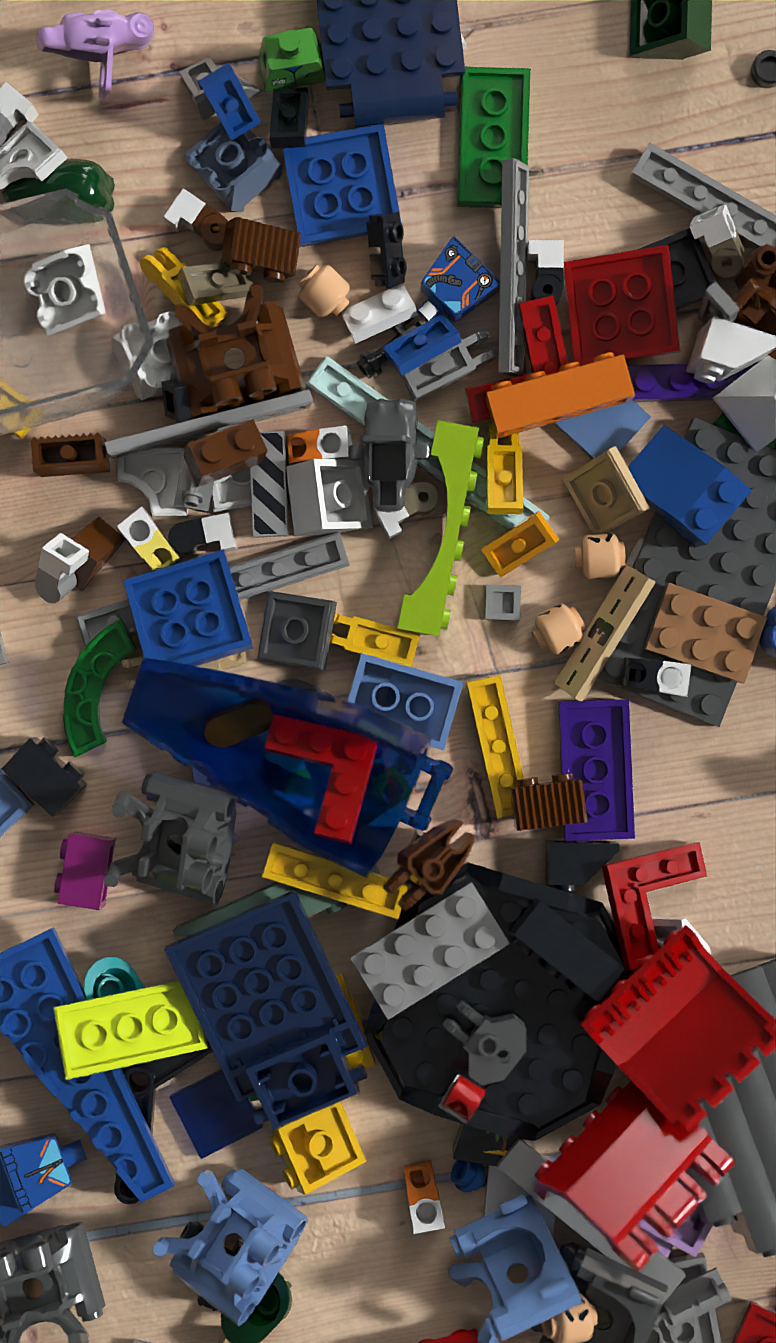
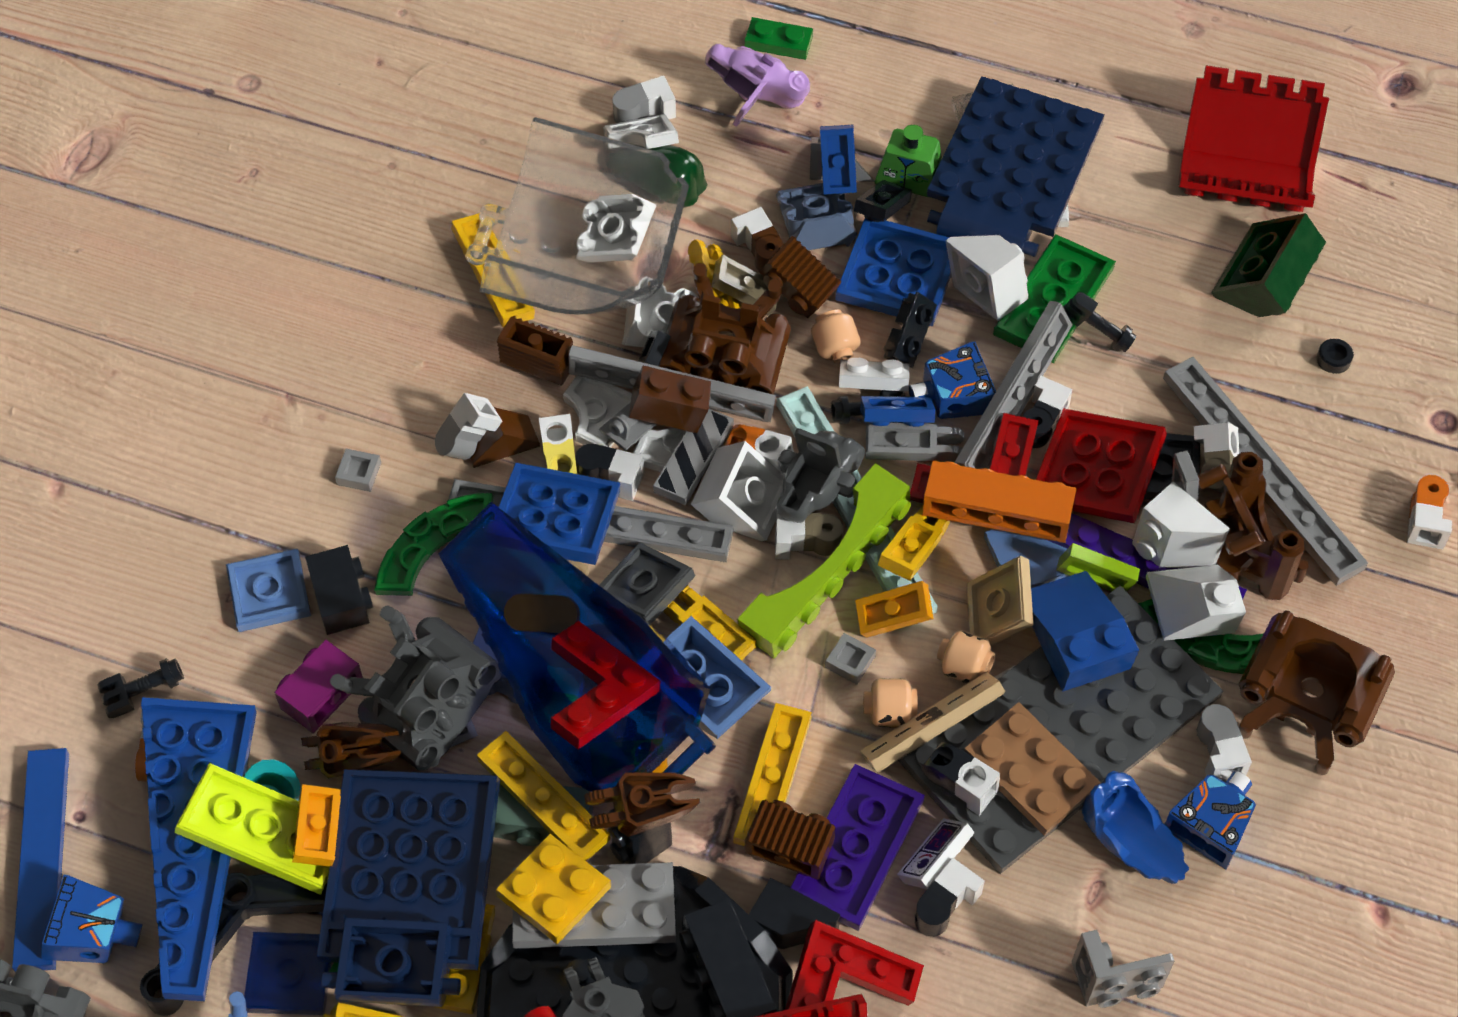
camera: 30 degrees right, 30 degrees down
(151, 916) = (347, 747): none -> reddish brown hinge
(172, 1007) = (317, 825): none -> light orange plate
(396, 964) = (553, 888): none -> yellow plate
(431, 154) = (988, 272): none -> white slope
(531, 147) = (1082, 309): none -> black hinge
(662, 743) = (935, 853): none -> tile
(670, 413) = (1104, 570): none -> lime tile
(686, 775) = (944, 896): none -> leg

